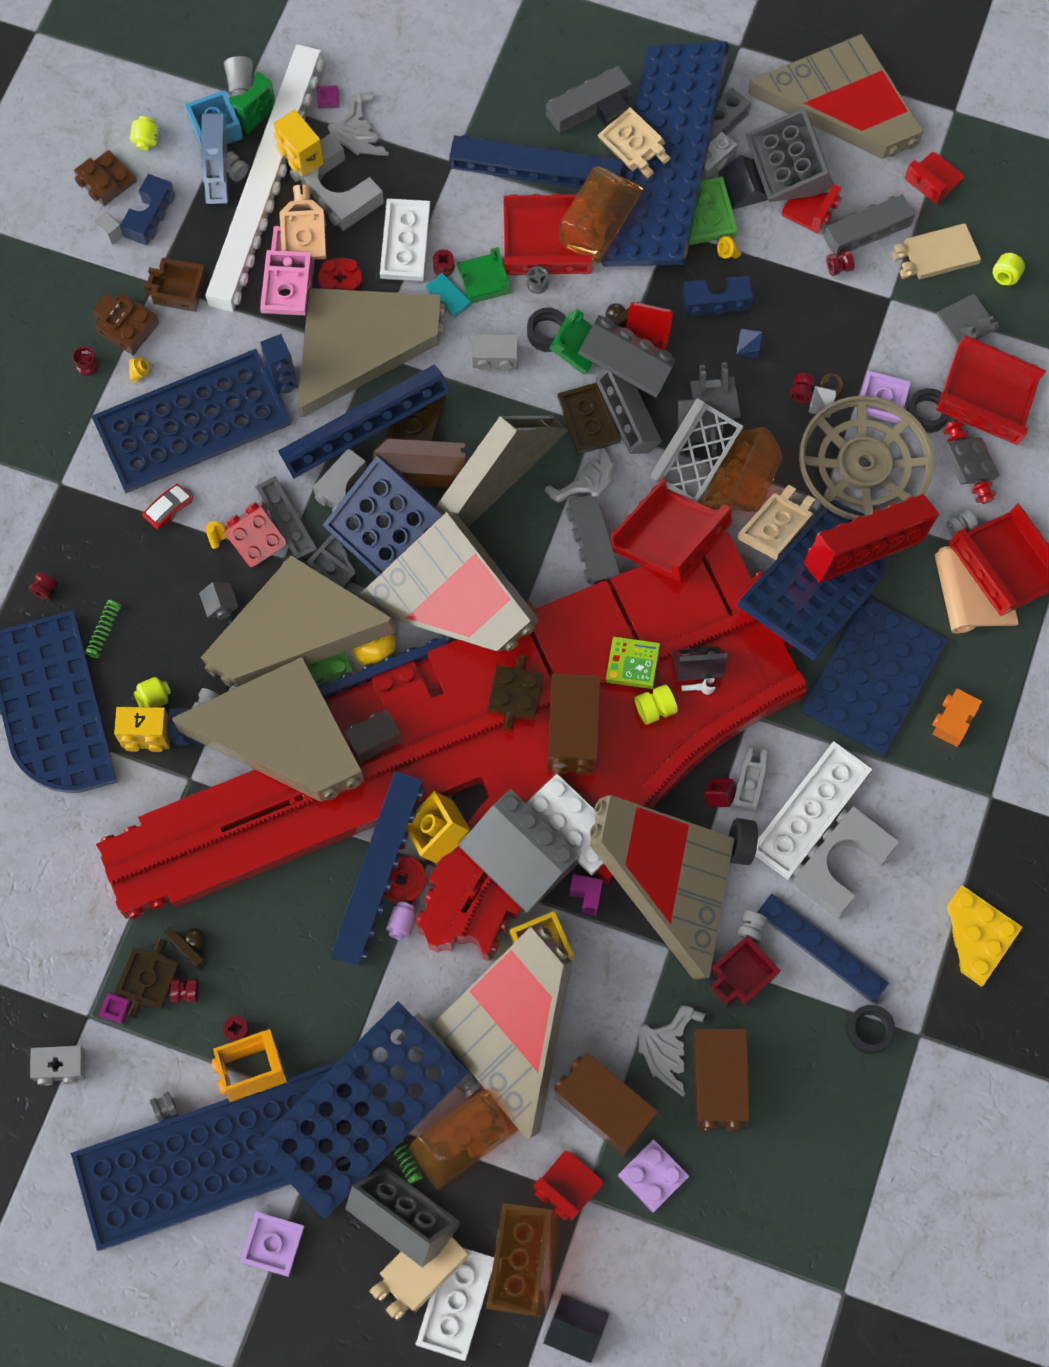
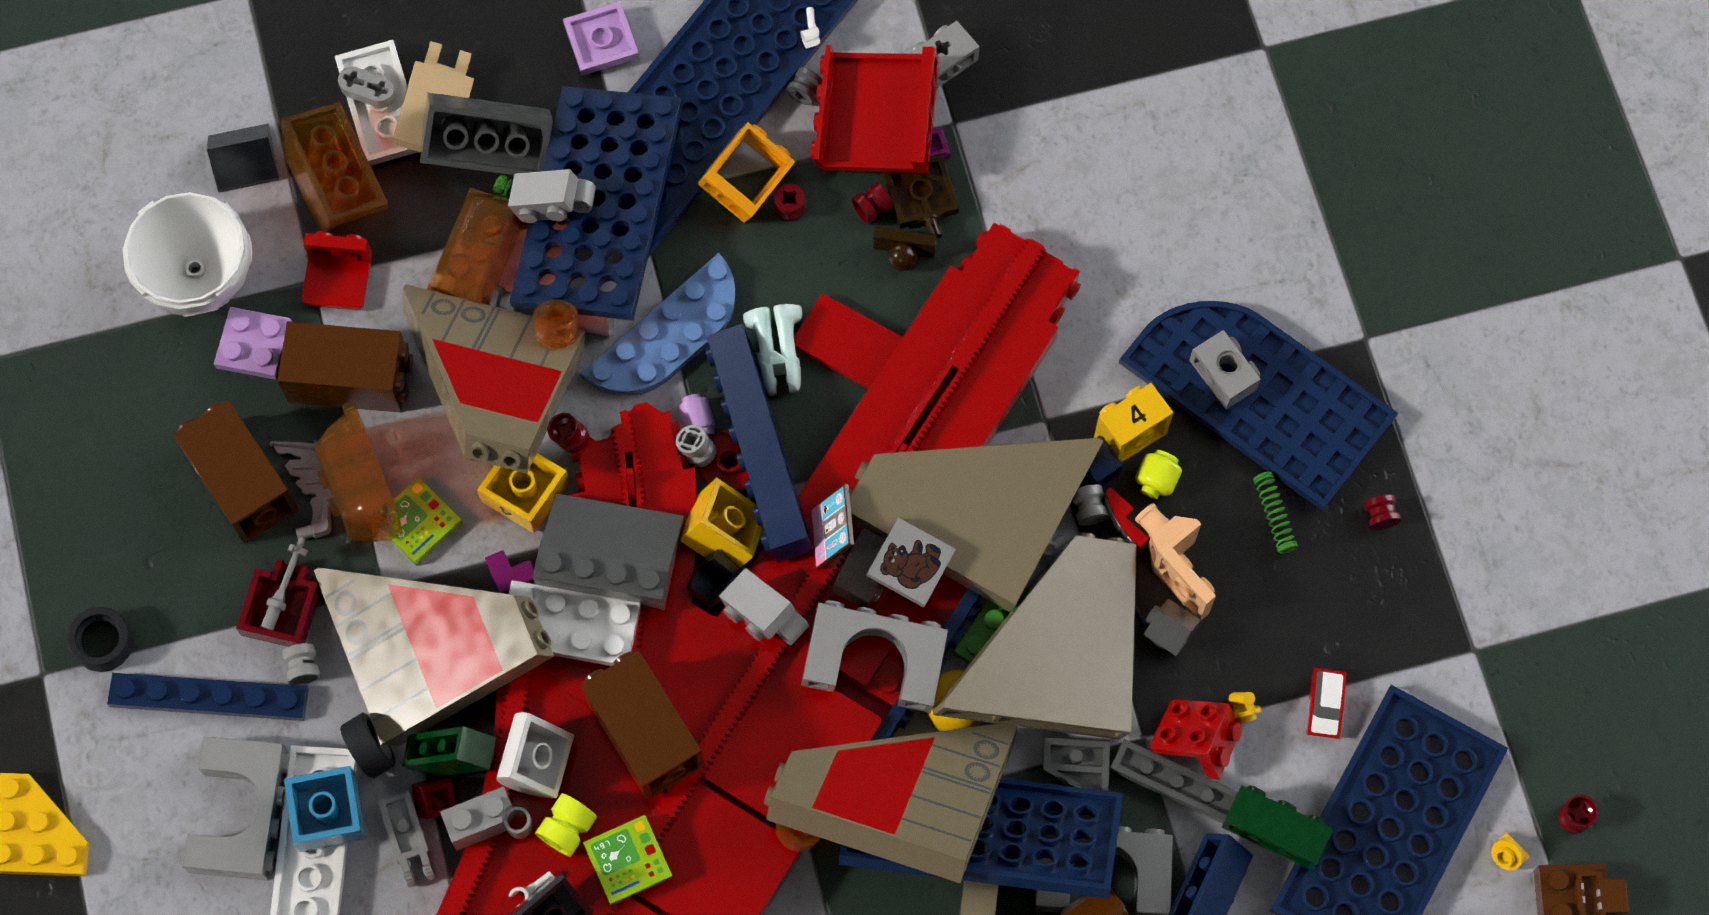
camera: 145 degrees right, 0 degrees up
(66, 735) = (1227, 386): none -> light grey brick
(132, 1048) = (875, 111): none -> red panel
(132, 1136) = (810, 36): none -> white hand
(185, 642) = (1168, 562): none -> light nougat plate
(195, 683) = (1119, 515): none -> red slope
(252, 452) = (1277, 827): none -> dark green brick
(271, 910) = (845, 341): none -> red tile
(329, 928) = (769, 361): none -> light aqua piece
(345, 713) = (910, 562): none -> tile
(375, 769) = (832, 526): none -> piece
(375, 991) = (668, 334): none -> medium blue plate
(394, 1122) = (550, 195): none -> light grey hinge
(414, 891) = (696, 445): none -> light grey wheel
(416, 711) = (919, 645): none -> light grey arch
(440, 1036) = (556, 324): none -> clear orange wheel
(453, 751) = (762, 609): none -> light grey hinge
(464, 1310) = (369, 83): none -> light grey beam
(466, 797) = (712, 577): none -> black panel
(496, 946) = (564, 426): none -> dark red wheel
(515, 693) = (741, 730): dark brown plate -> none
(621, 975) = (424, 521): none -> lime tile
(645, 1020) = (356, 480): none -> clear orange windscreen
(650, 752) = (534, 756): none -> white brick
(687, 1249) = (181, 235): none -> white rock
(697, 797) = (449, 751): none -> dark green brick
(702, 736) = (483, 819): none -> light grey hinge
(745, 973) = (276, 603): none -> light grey piece
(793, 814) = (324, 808): none -> dark azure brick

